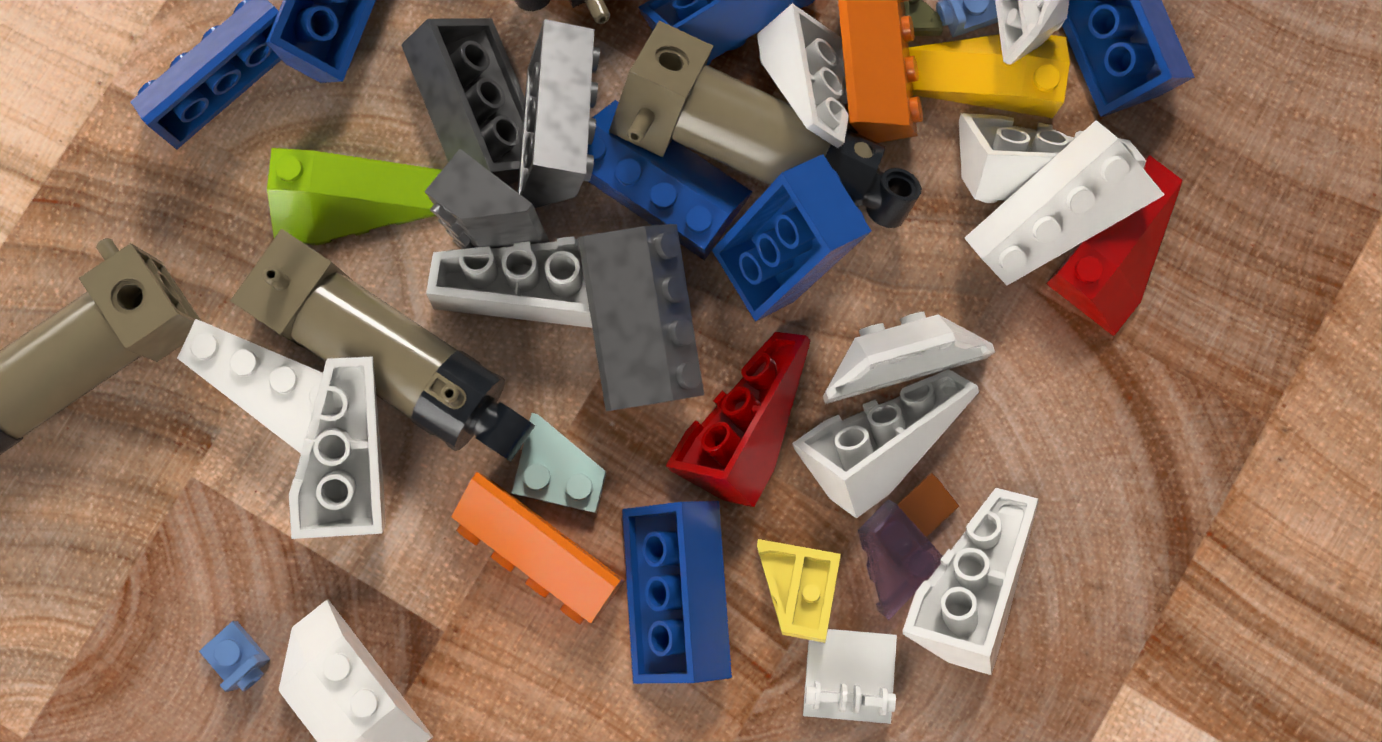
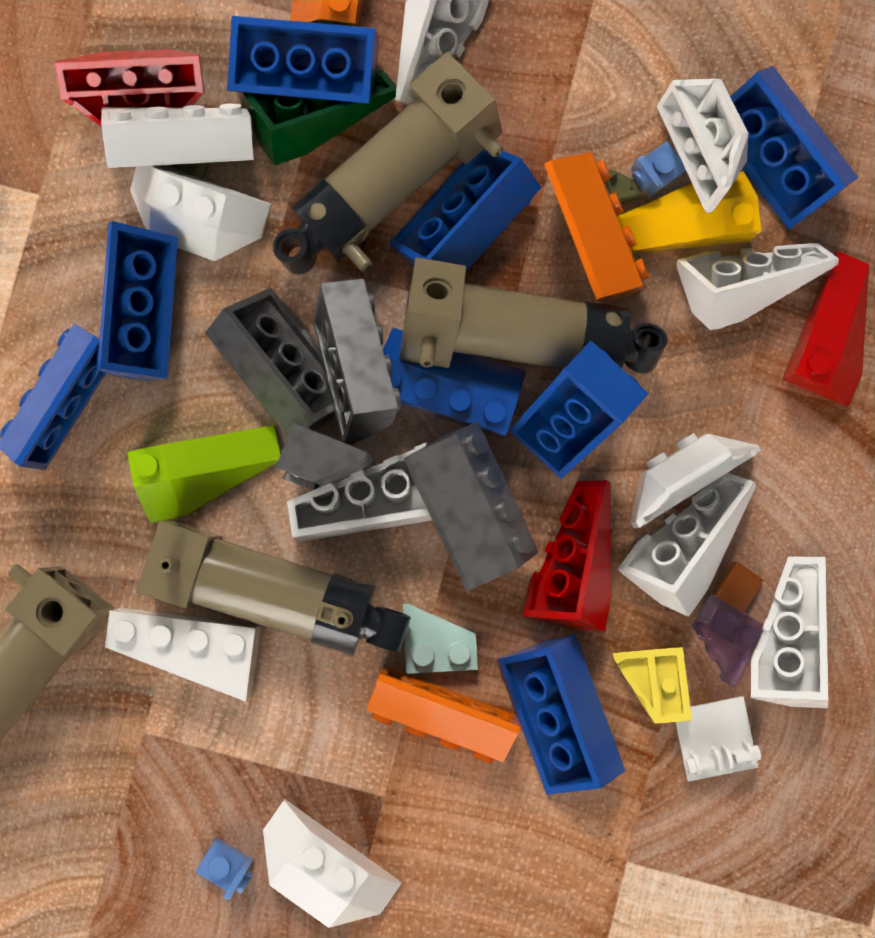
camera: 20 degrees left, 5 degrees up
(340, 463) = (265, 696): white wedge -> none
(808, 70) = (549, 262): white wedge -> none
(1064, 204) = (784, 316): white wedge -> none

